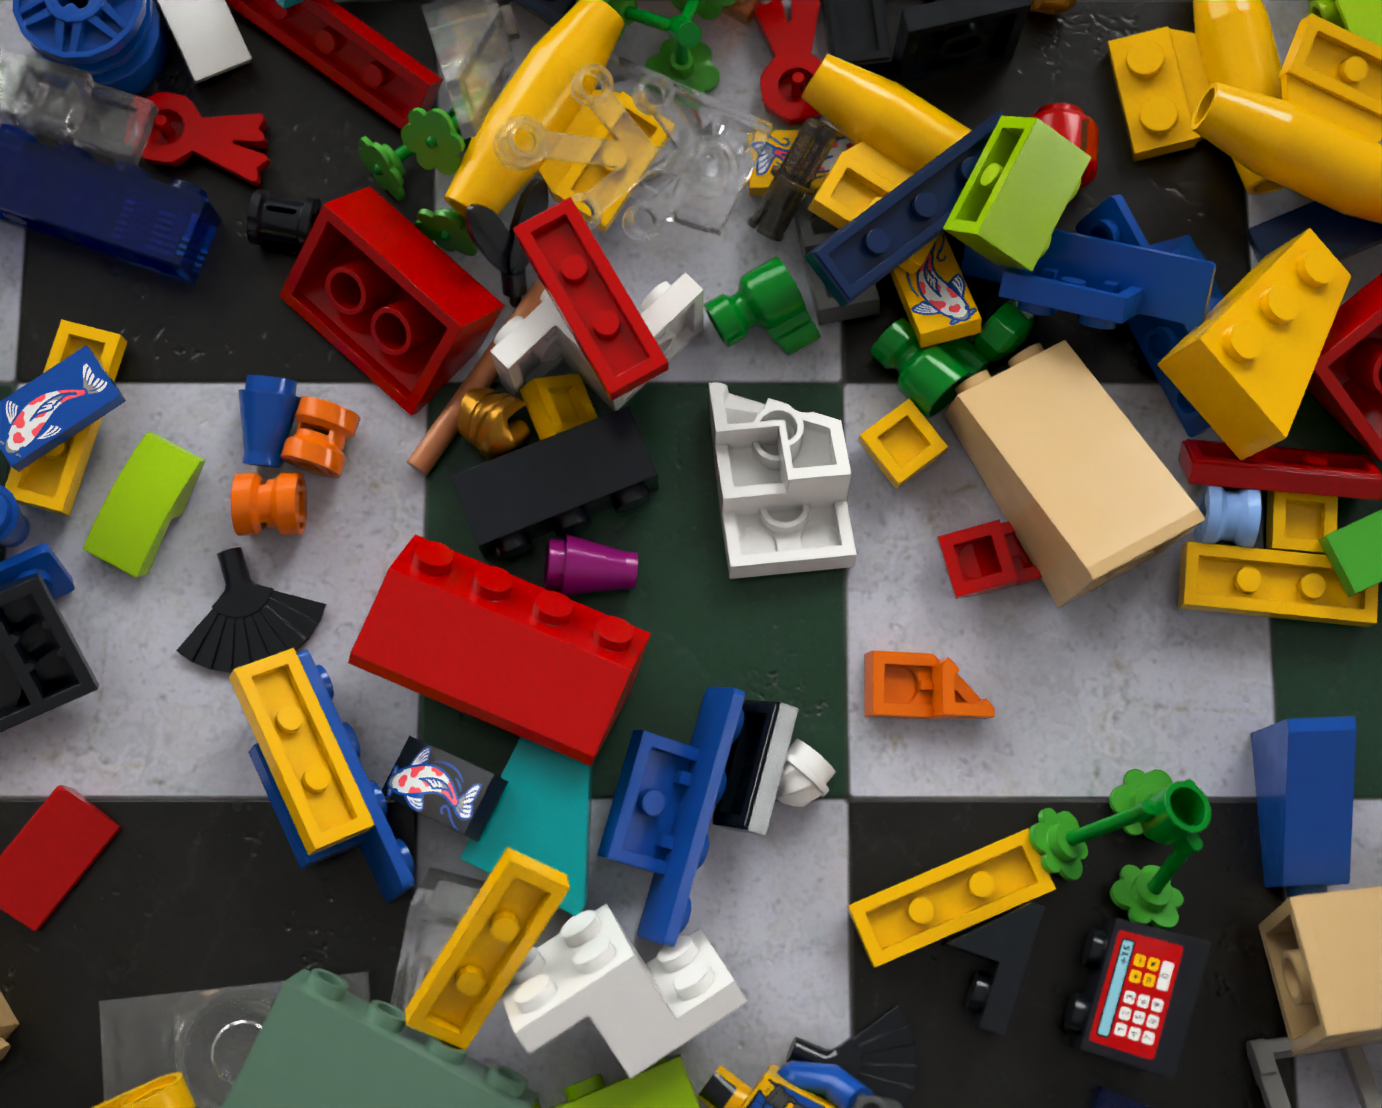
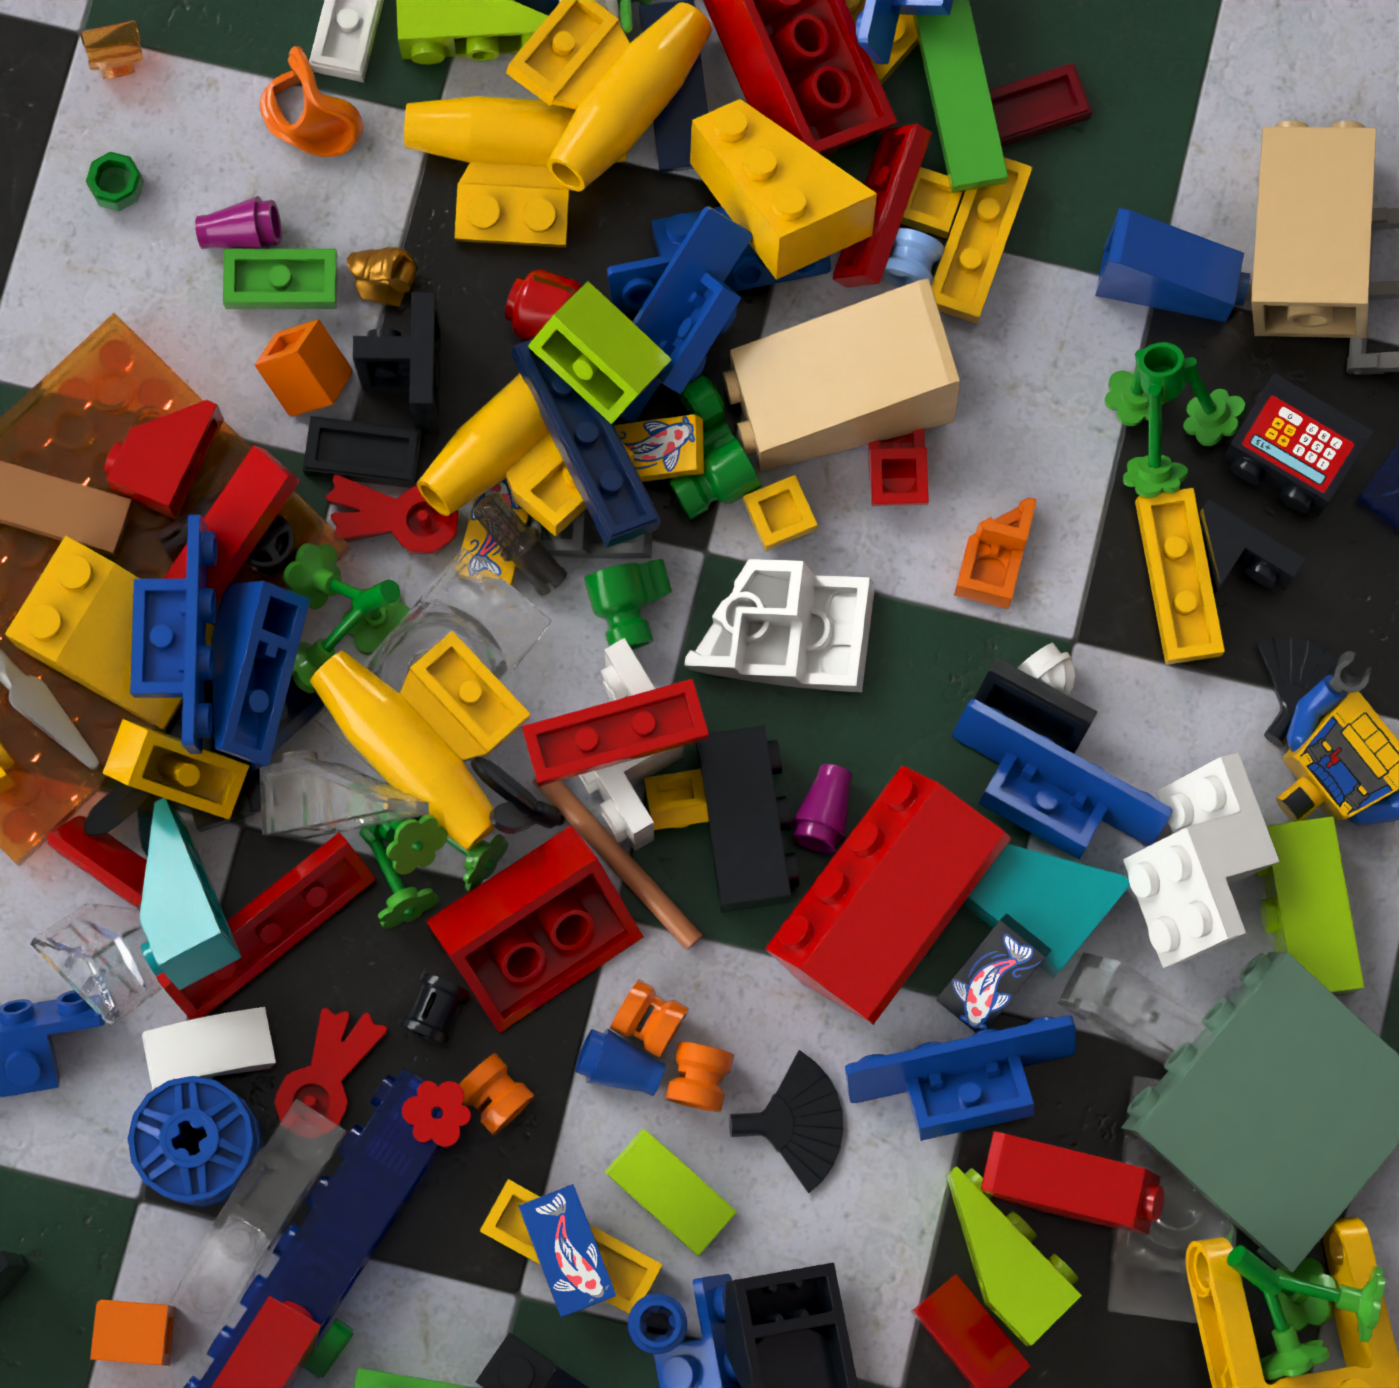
camera: 80 degrees left, 0 degrees up
(119, 890) = (1011, 1272): none -> lime slope
(160, 221) = (418, 1112): none -> red plant
(209, 298) = (495, 1094): none -> orange wheel
(219, 922) = (1072, 1184): none -> red slope
(301, 751) = (936, 1086): yellow plate -> none
(484, 422) = (676, 860): pearl gold arm -> none
(486, 949) = (1148, 955): yellow plate -> none
(630, 154) = (478, 674): clear plant -> none

